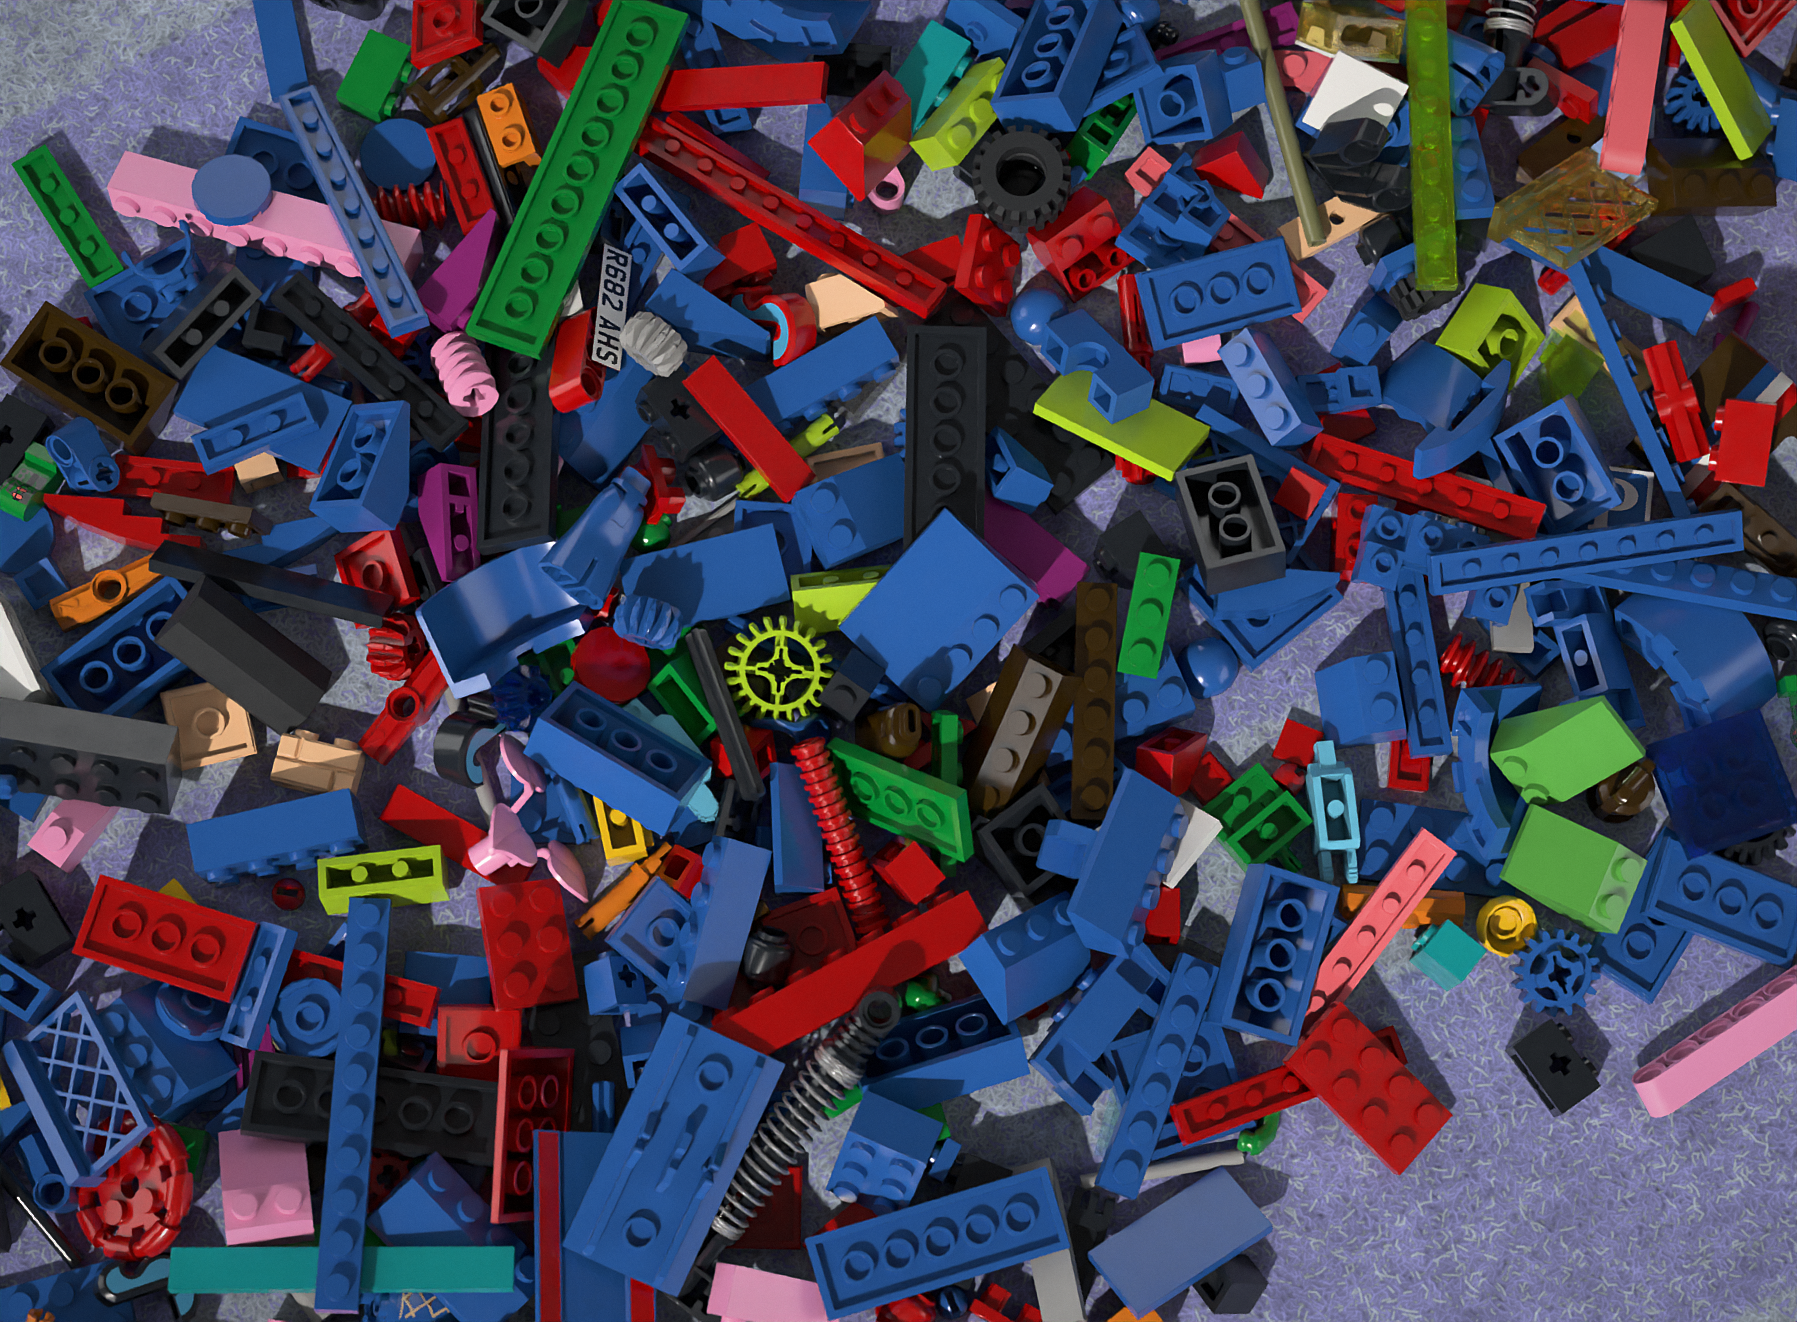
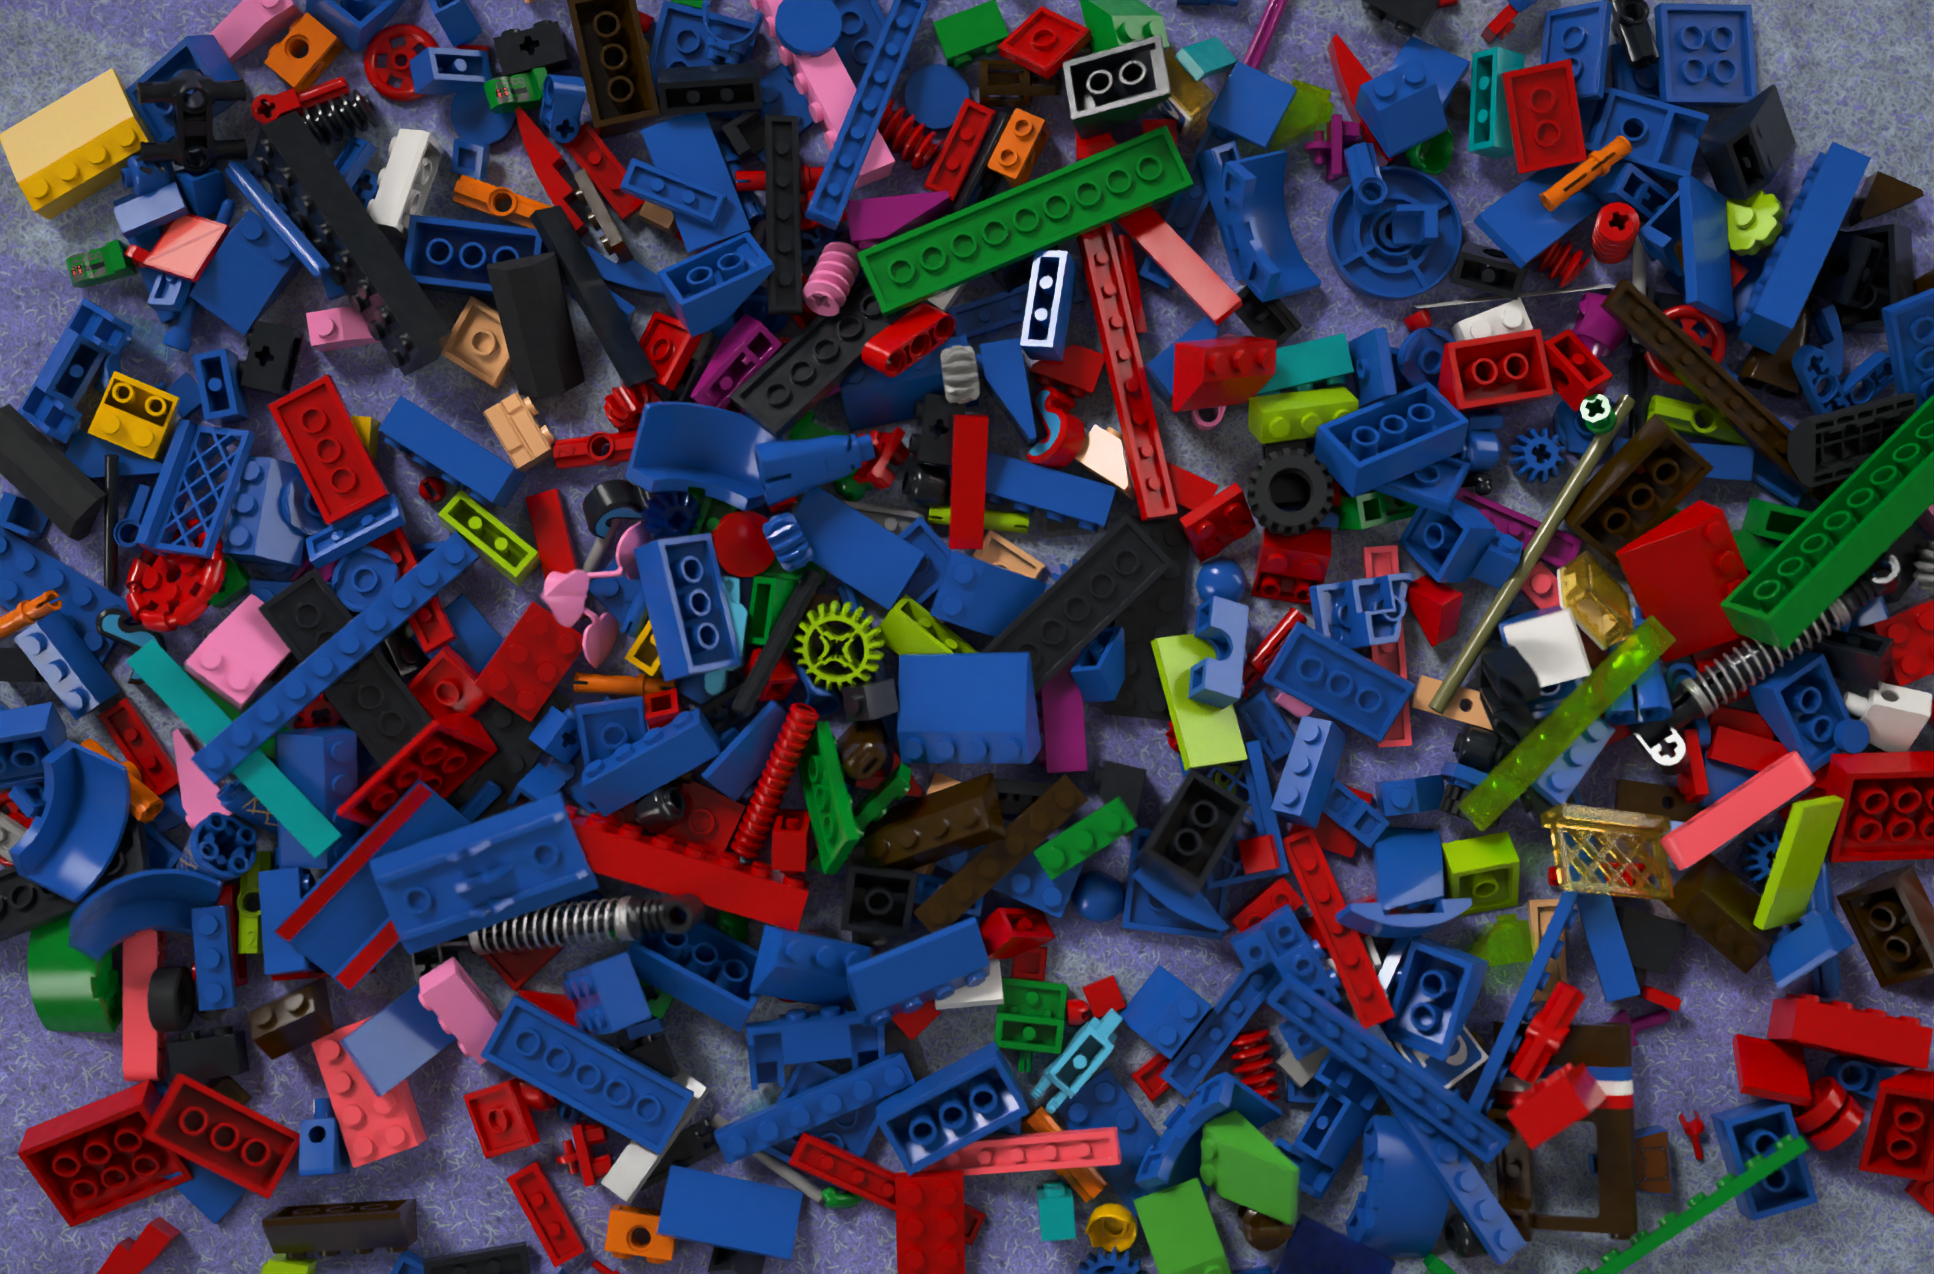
camera: 55 degrees right, 10 degrees up
(611, 307) = (961, 324): white sticker -> none
(1065, 848) = (892, 927): blue panel -> none

